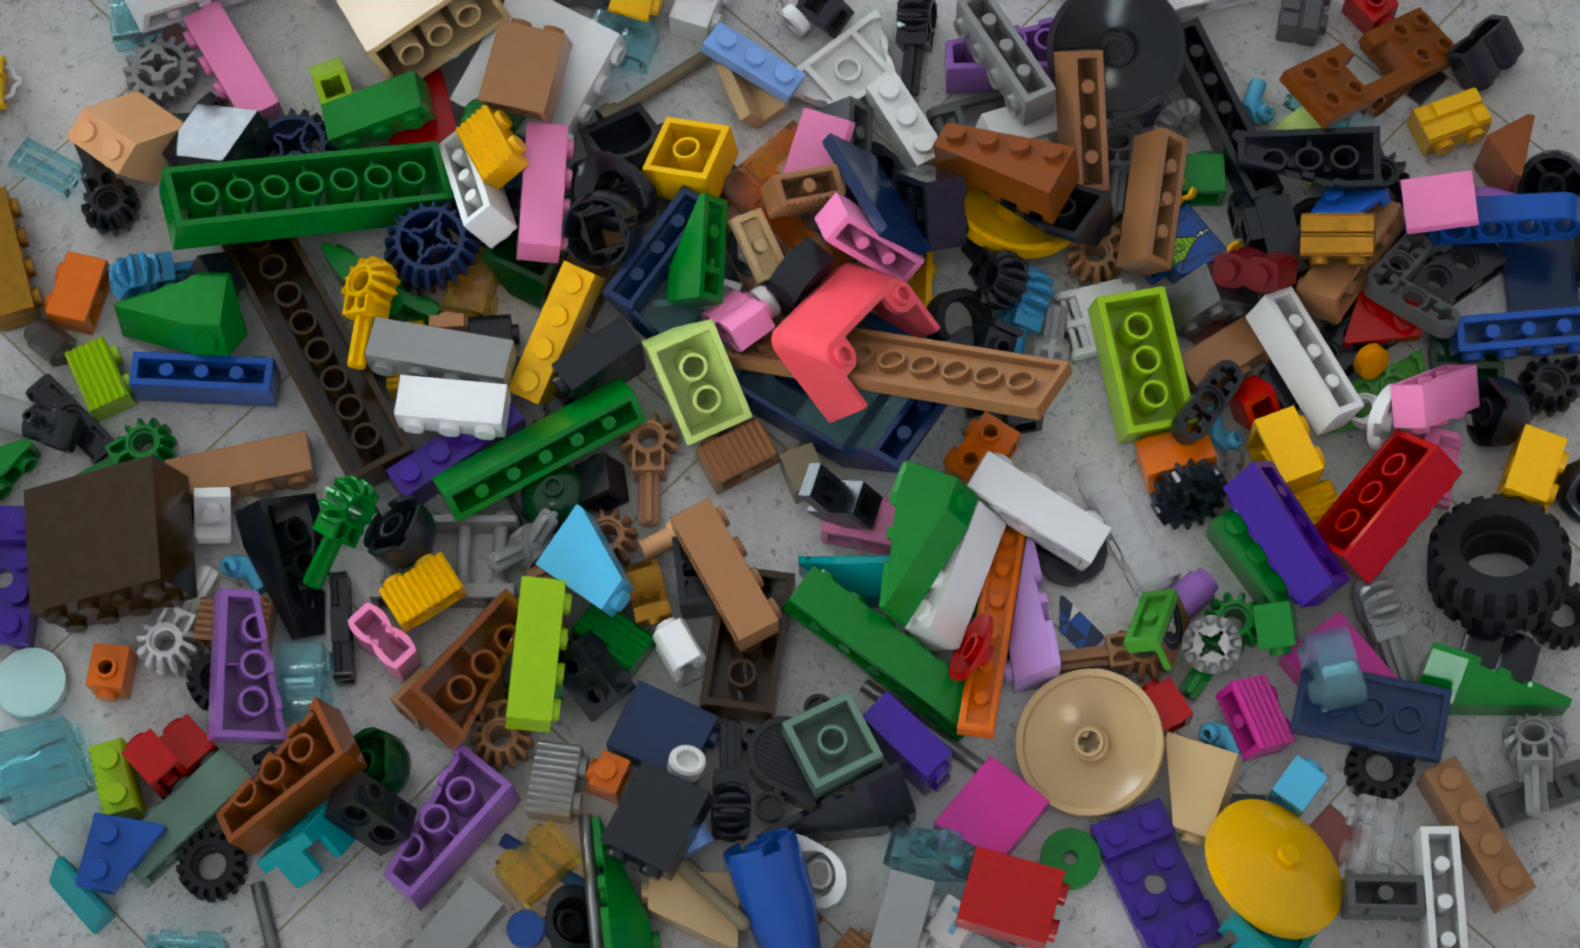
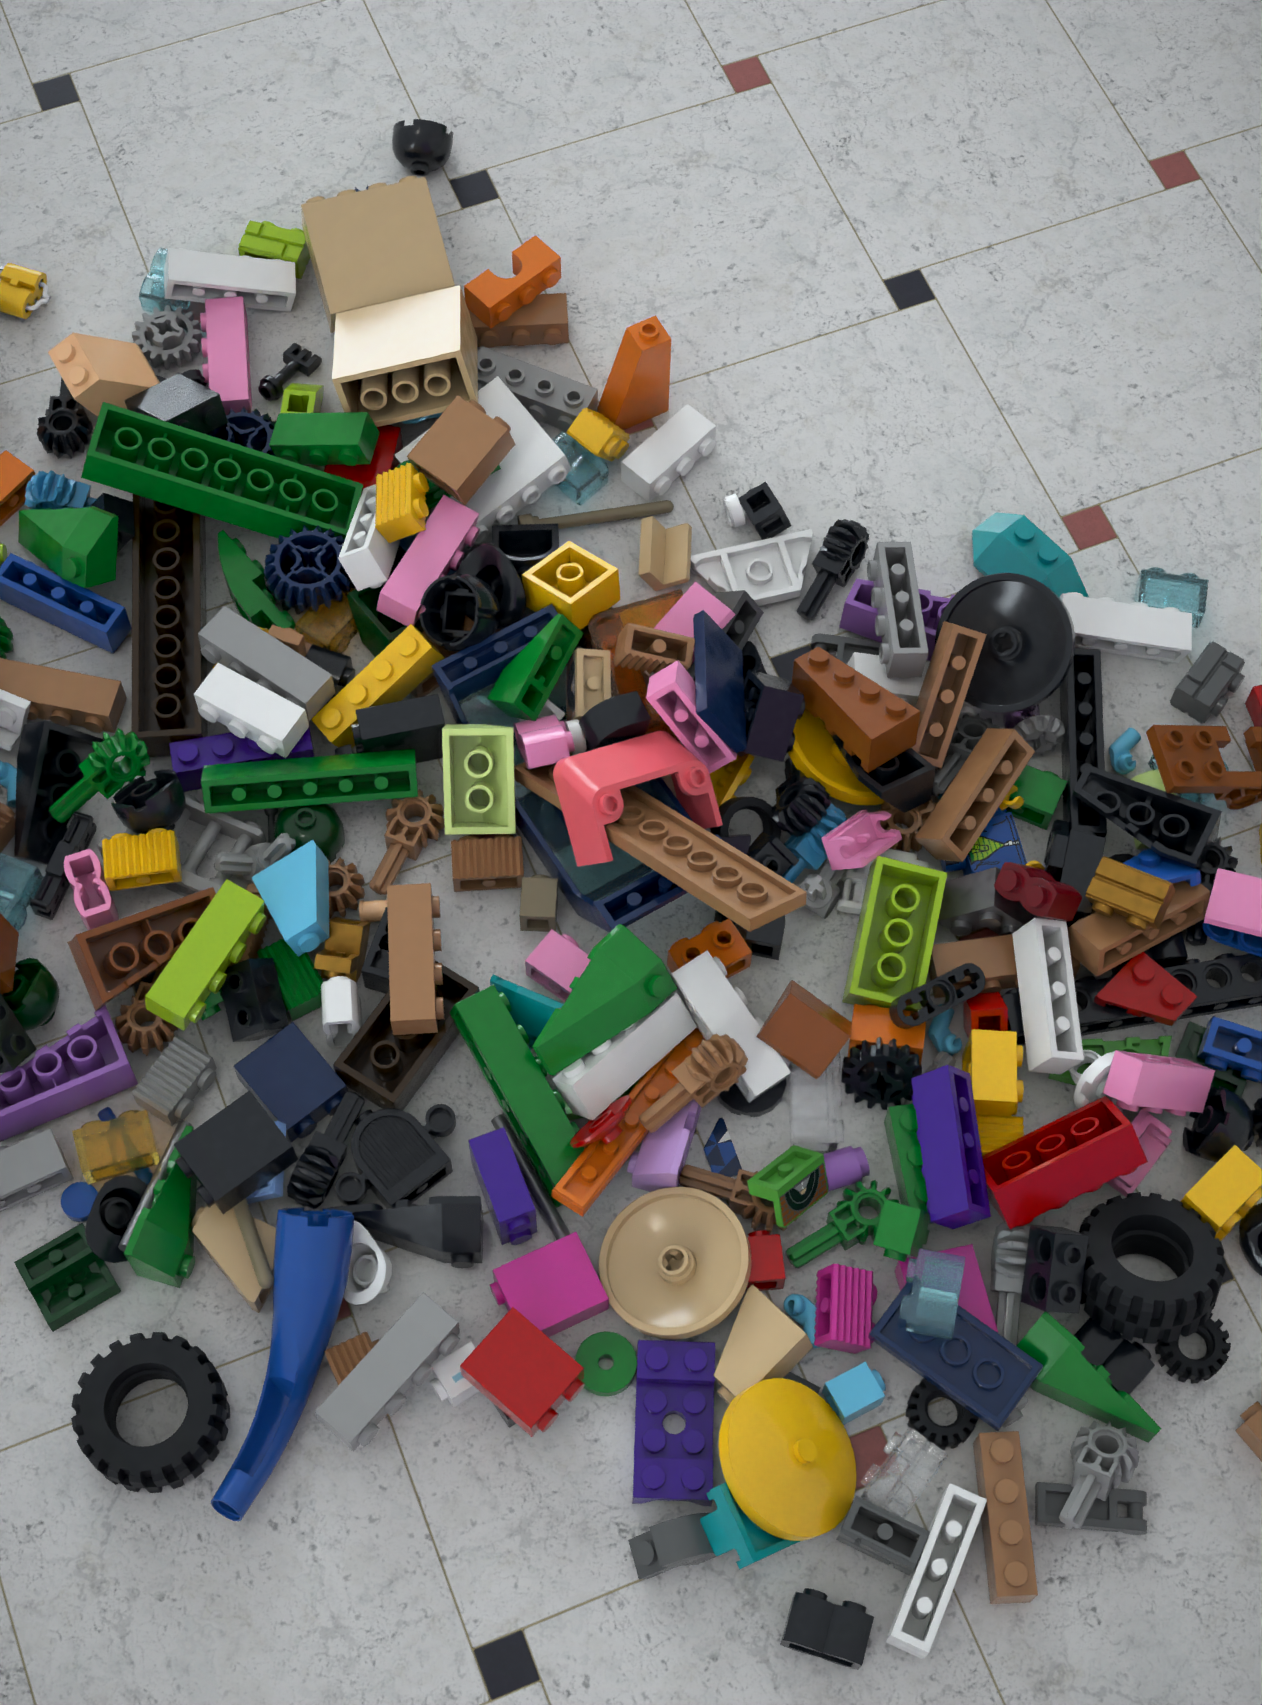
camera: 20 degrees right, 5 degrees down
(68, 180) = (44, 396): clear light blue tile -> none
(290, 79) = (296, 360): none -> black hinge
(367, 295) = (231, 586): yellow gear -> none
(602, 483) = (353, 835): black brick -> none
(608, 777) = (220, 1092): orange brick -> none
(687, 763) = (292, 1114): white tile -> none
(753, 62) = (674, 529): light blue plate -> none
(832, 745) = (429, 1154): sand green brick -> none
(839, 501) = (548, 937): black brick -> none
(902, 121) = (783, 629): white brick -> none
(930, 853) = (470, 1296): clear light blue brick -> none
(1038, 569) = (701, 1076): none -> medium nougat gear
(1070, 289) = (859, 840): none -> bright pink hinge
(1107, 484) = (805, 1030): none -> dark orange slope
(1212, 662) = (850, 1226): light grey gear -> none
(1371, 361) = (1115, 1026): light orange tile -> none
(1399, 288) = (1191, 1005): dark grey beam -> none
(1424, 601) = (1054, 1269): none -> black brick

